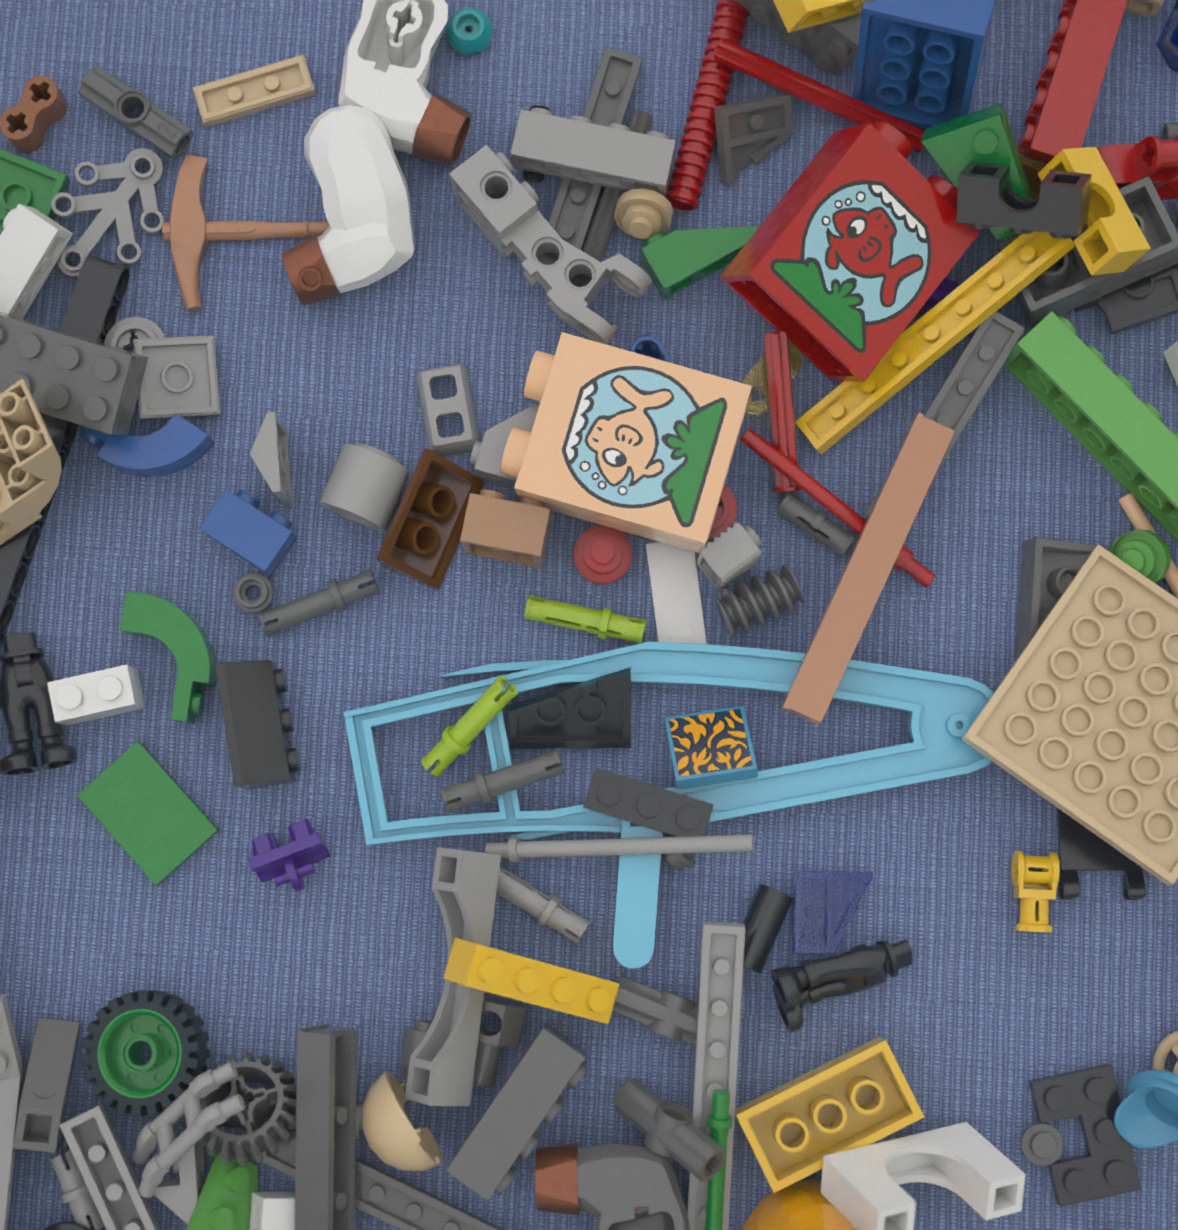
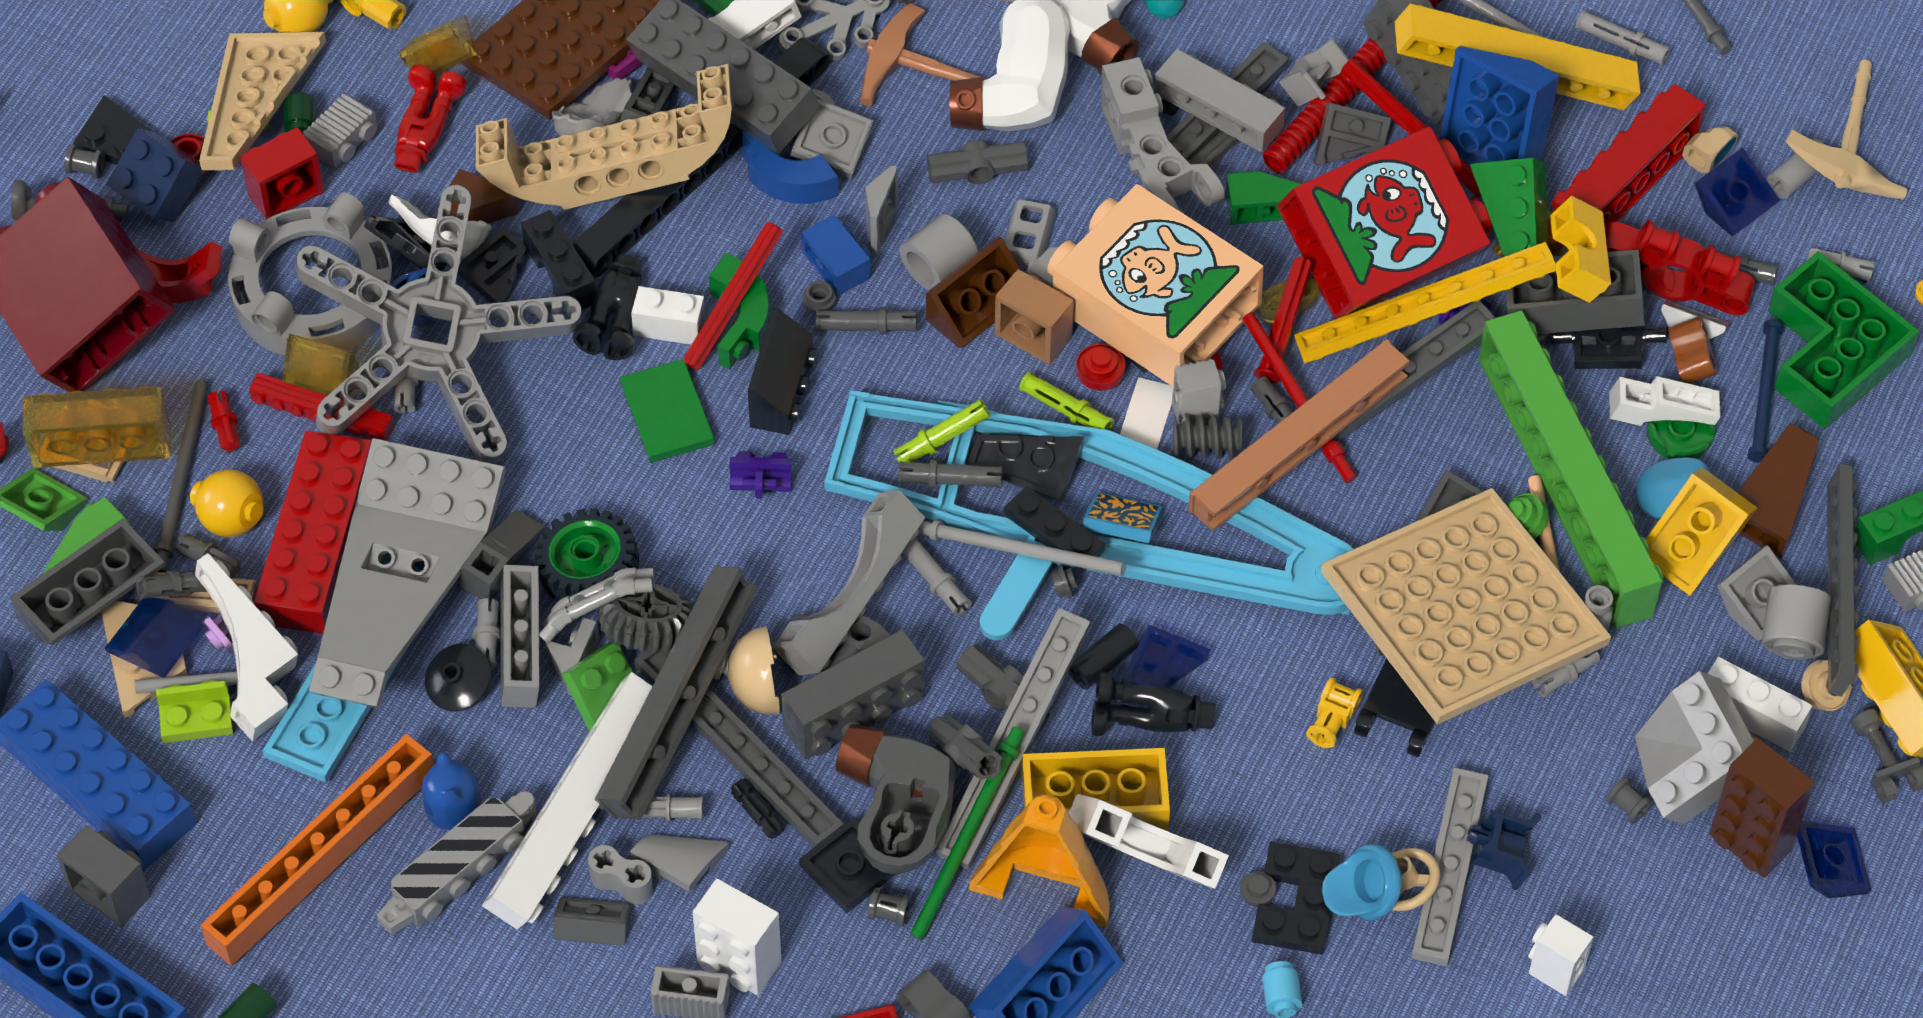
camera: 20 degrees right, 25 degrees down
(159, 648) = (732, 295): none -> red axle
(353, 341) = (977, 162): none -> dark grey piece
(530, 981) = (908, 604): yellow brick -> none
(643, 213) = (1240, 153): tan plate -> none
(678, 68) = (1311, 70): none -> light grey piece
(989, 201) = (1550, 227): black arch -> none

